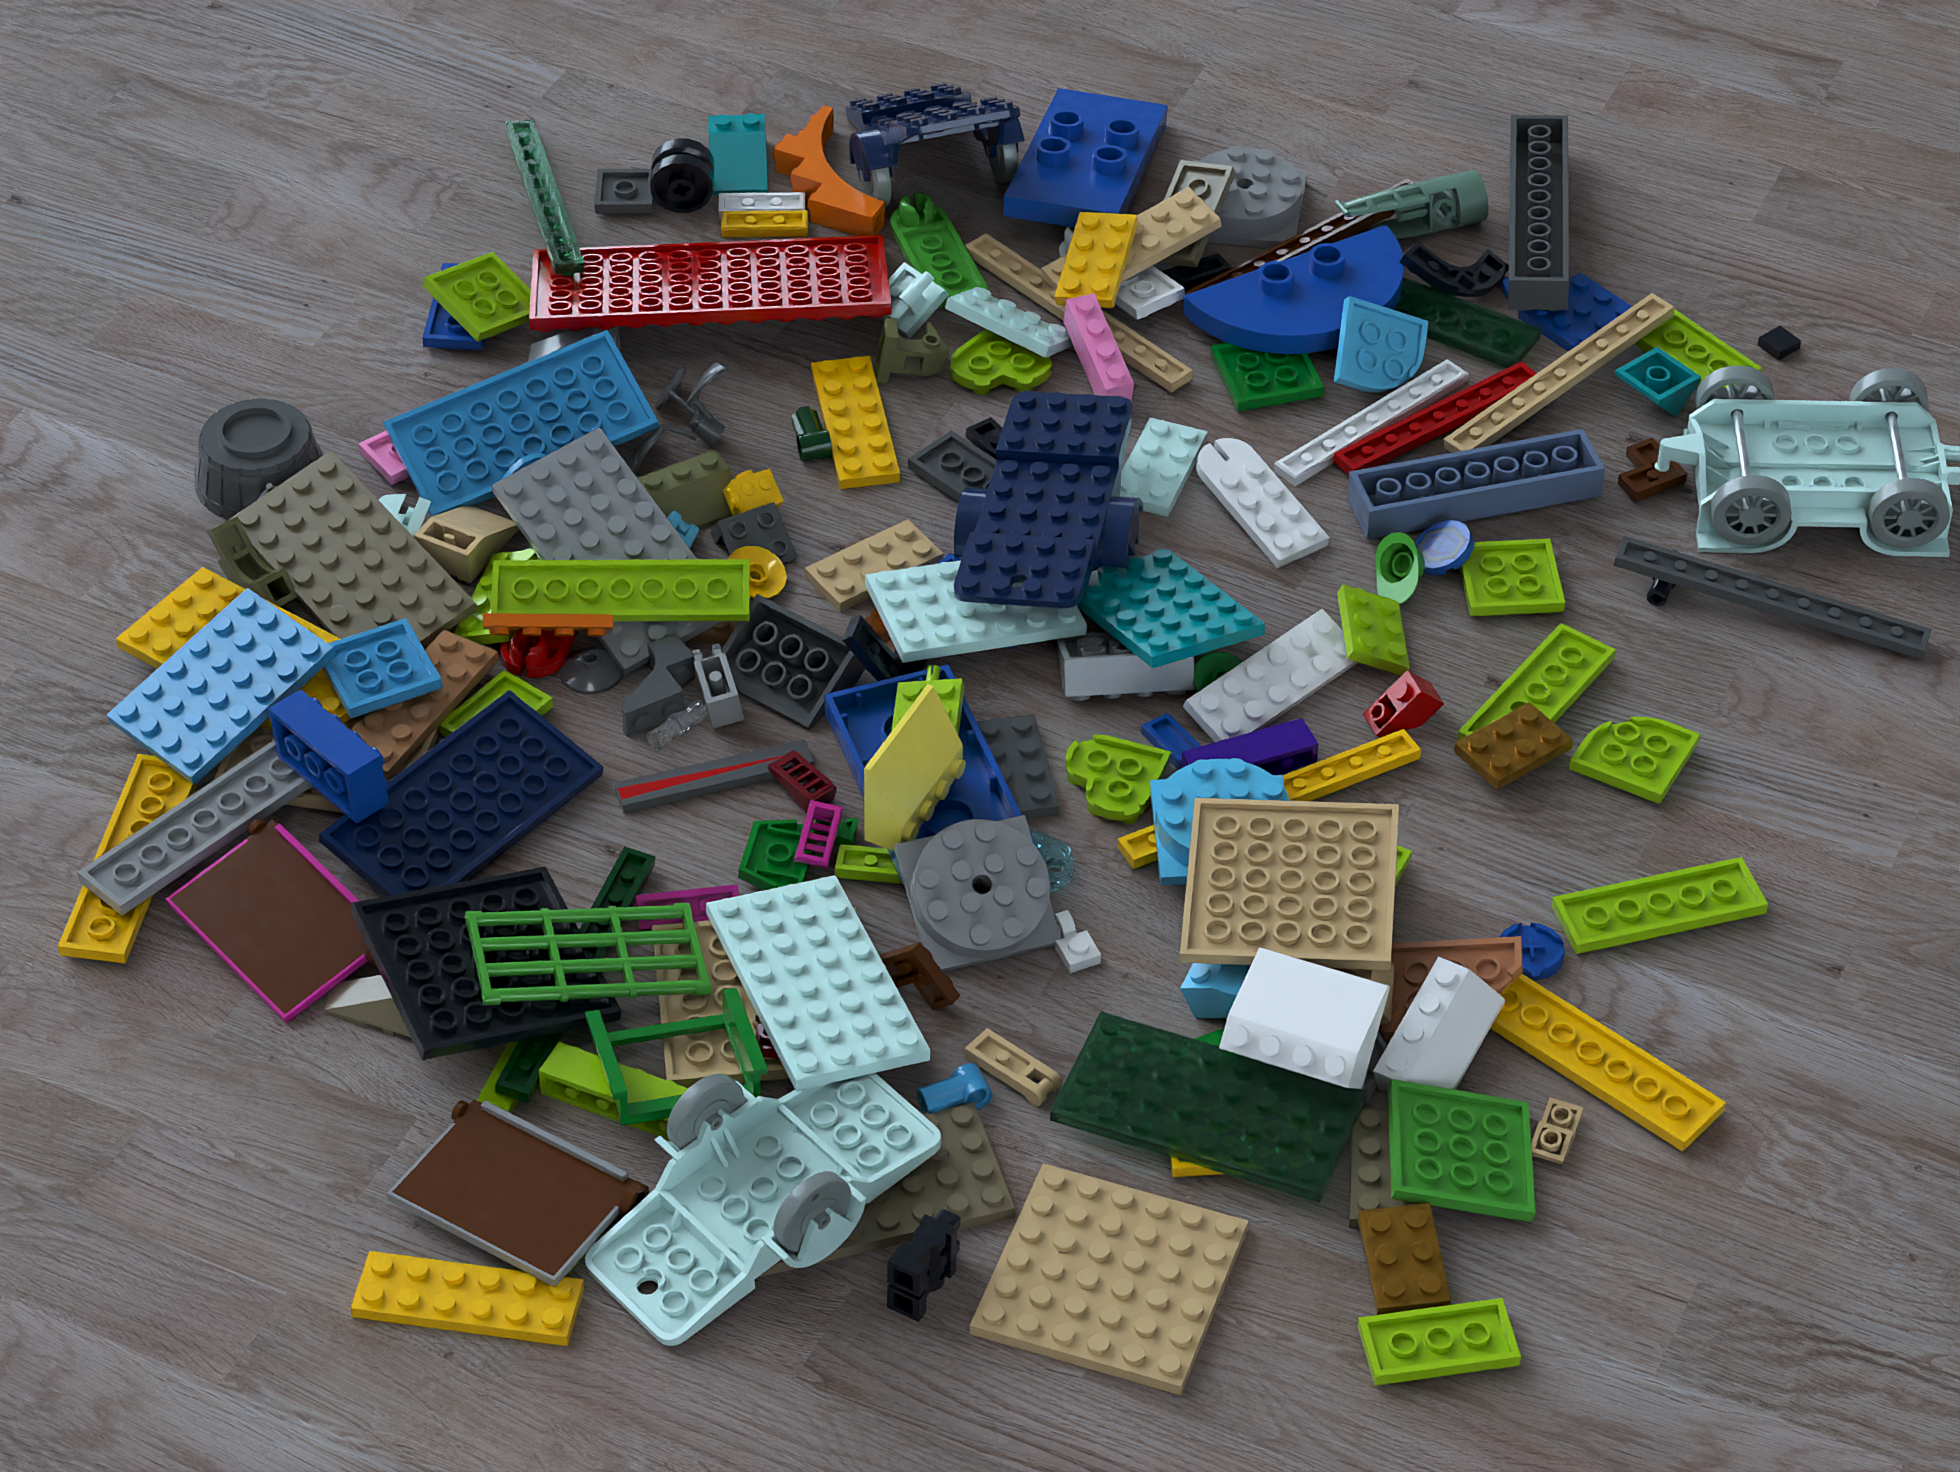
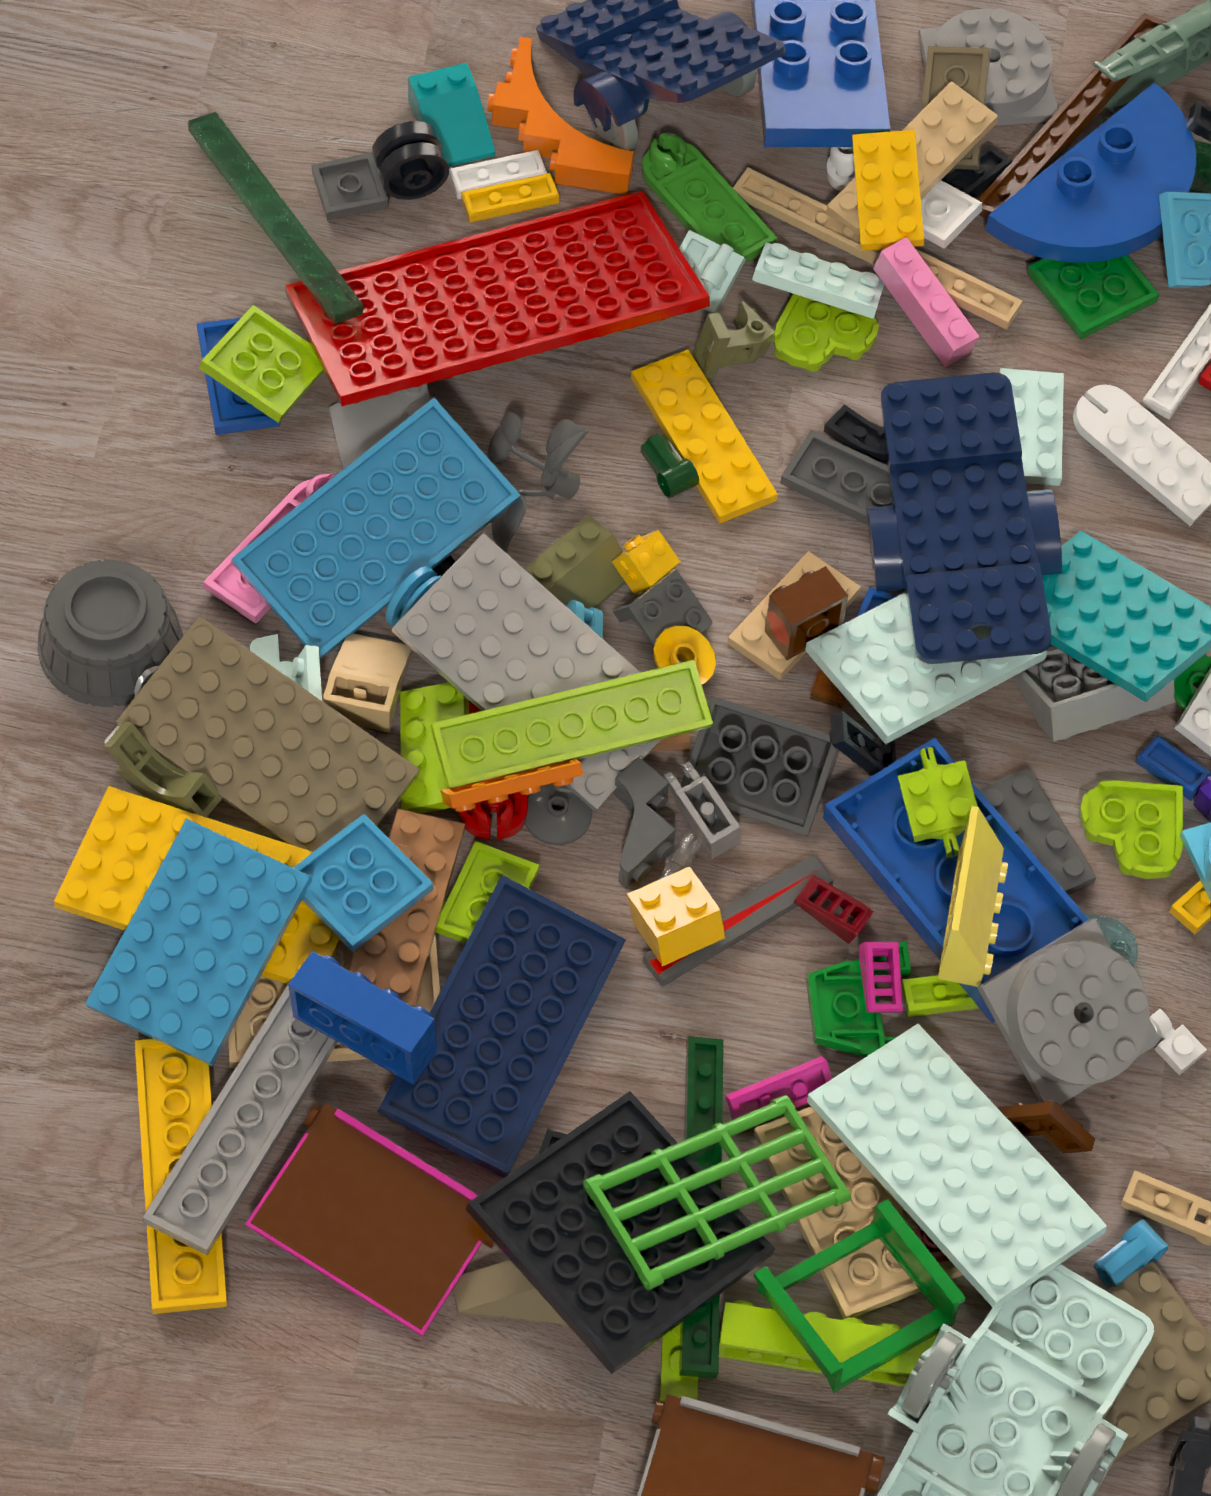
camera: 20 degrees left, 15 degrees up
(653, 753) = (676, 916): none -> yellow brick
(870, 546) = (805, 611): none -> reddish brown brick

